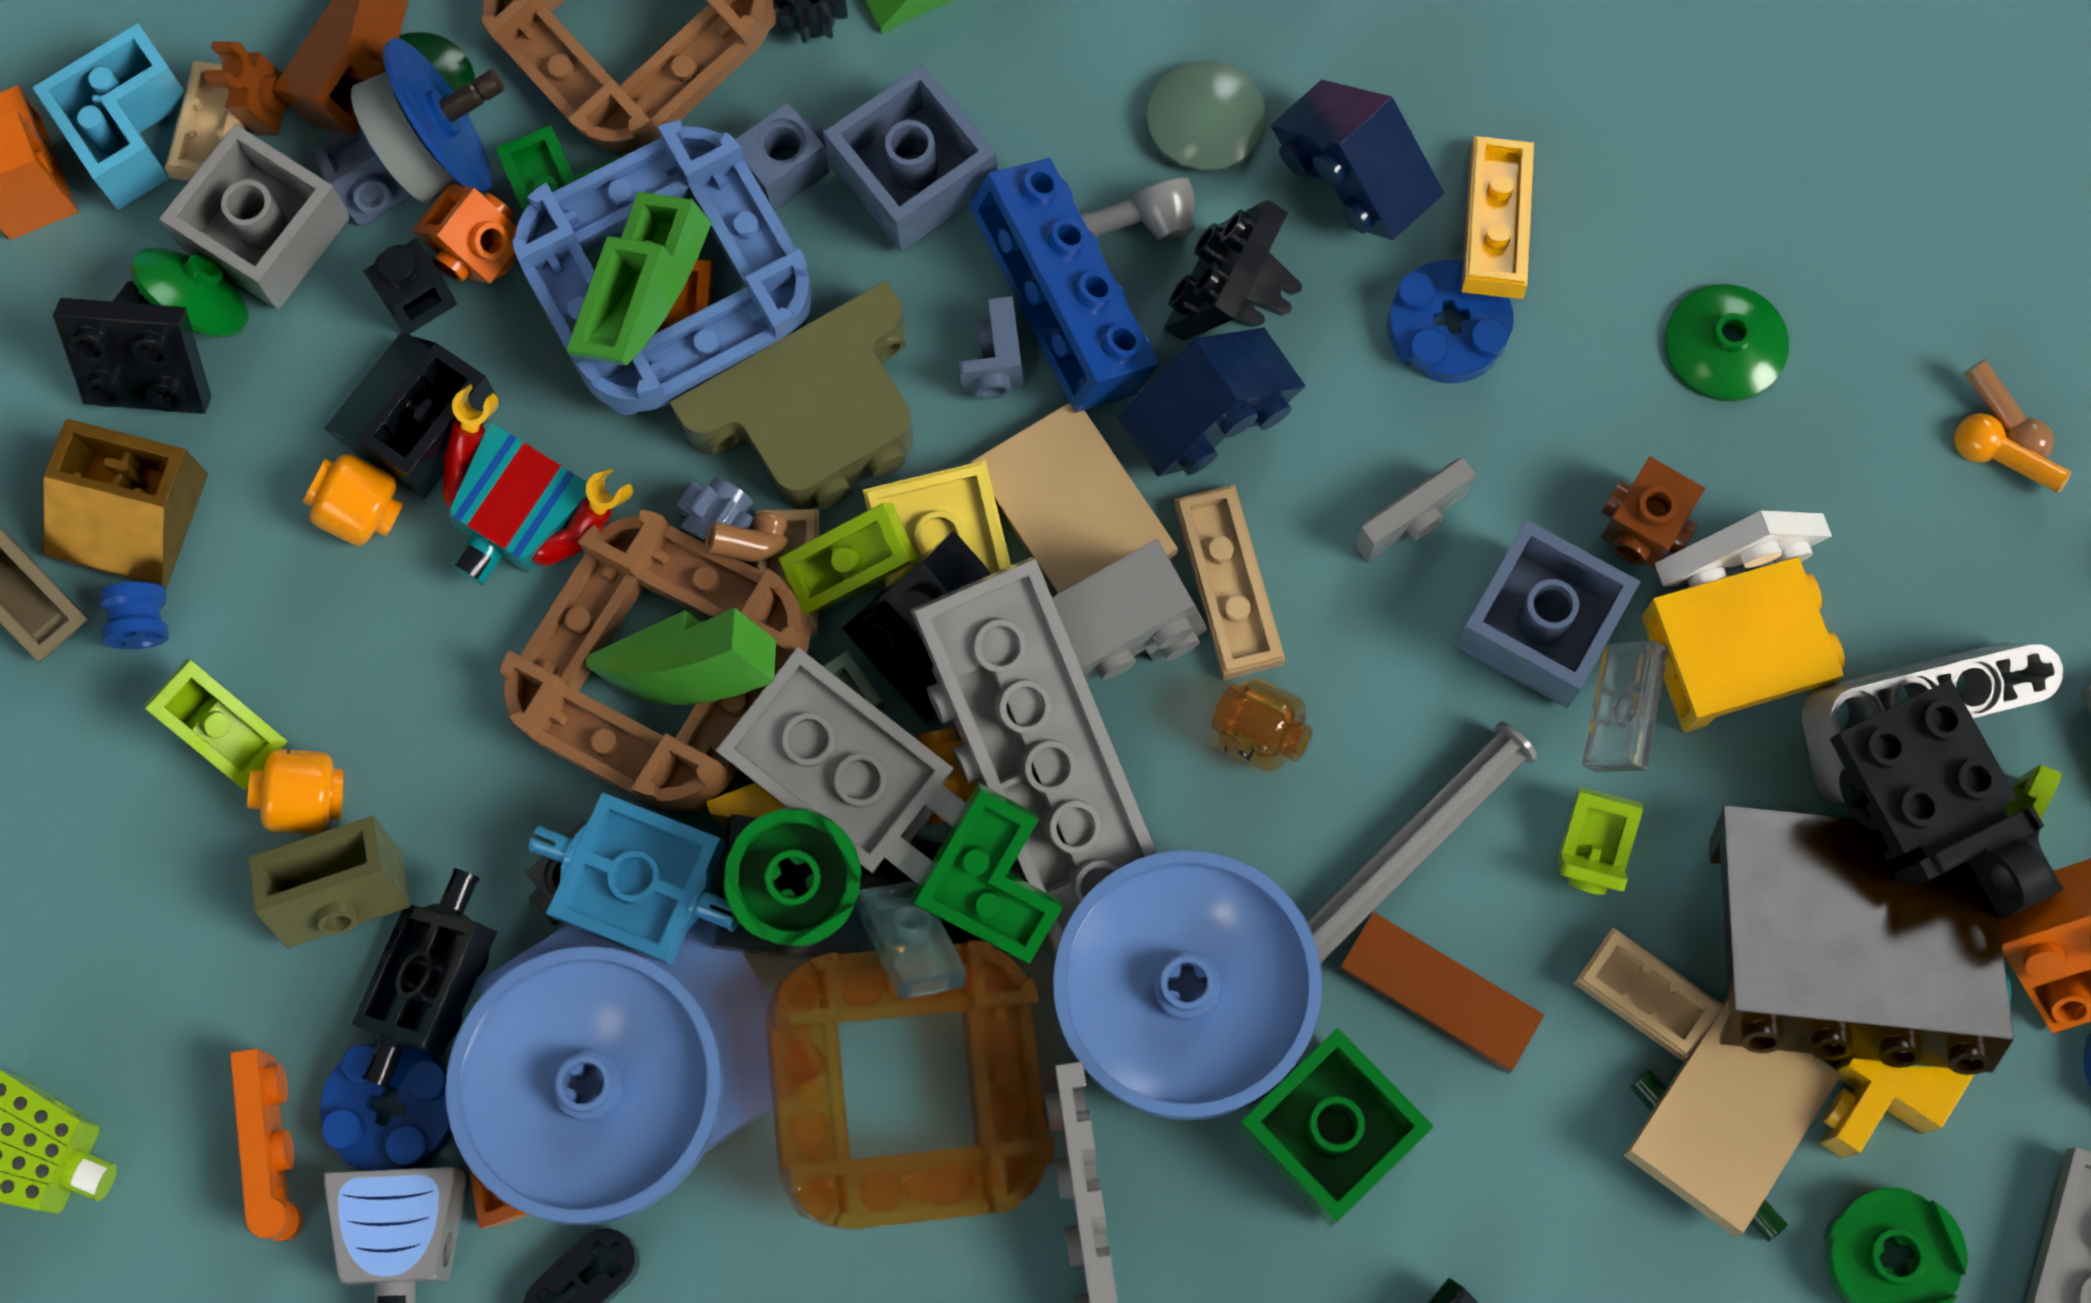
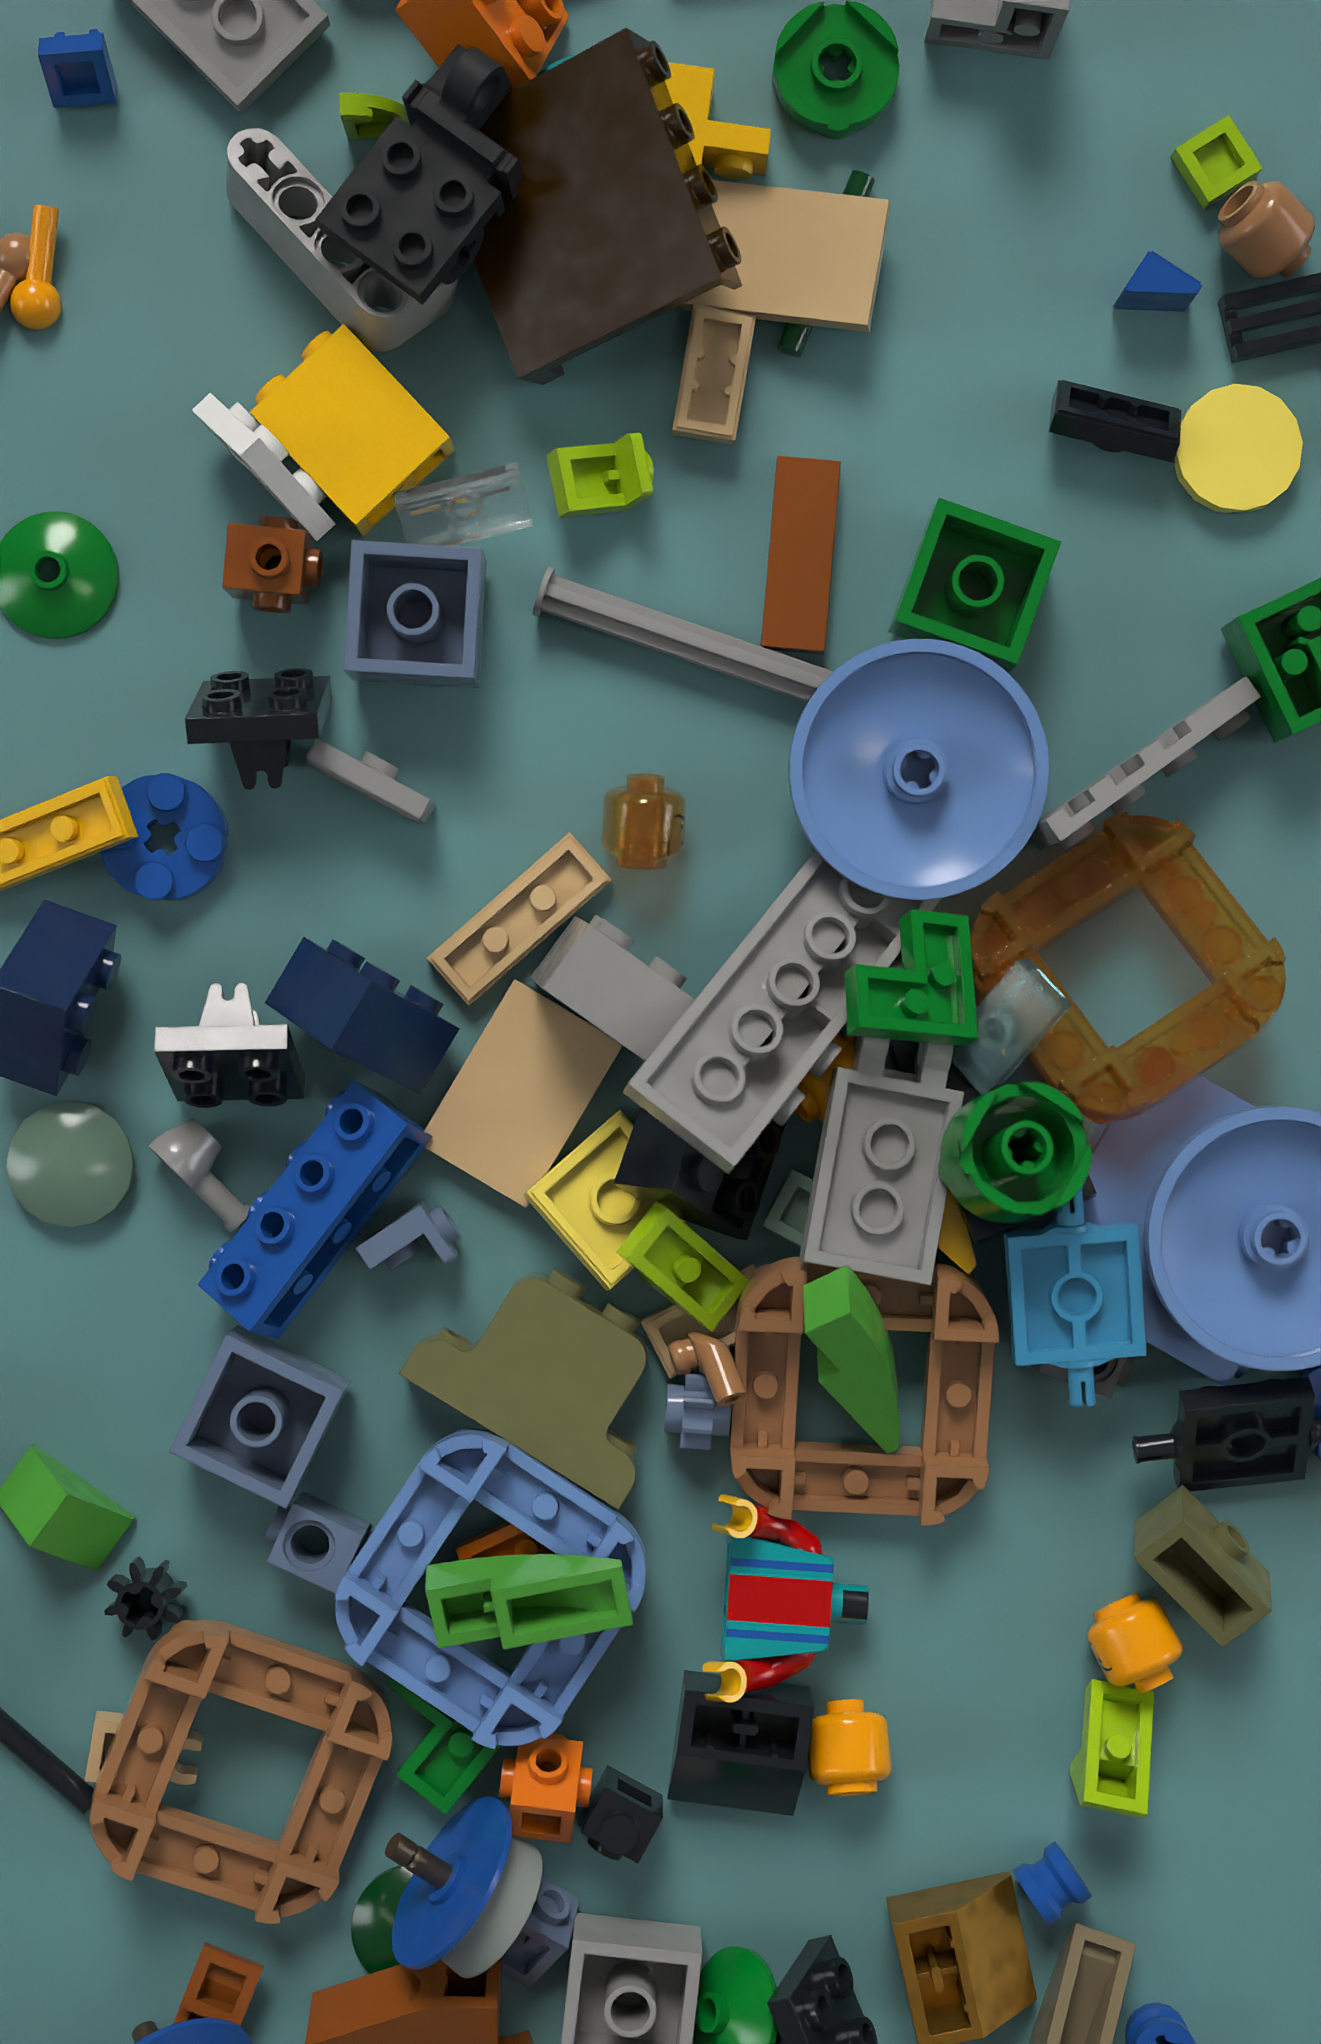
camera: 115 degrees left, 15 degrees up
(1518, 436) = (259, 718): none -> black plate

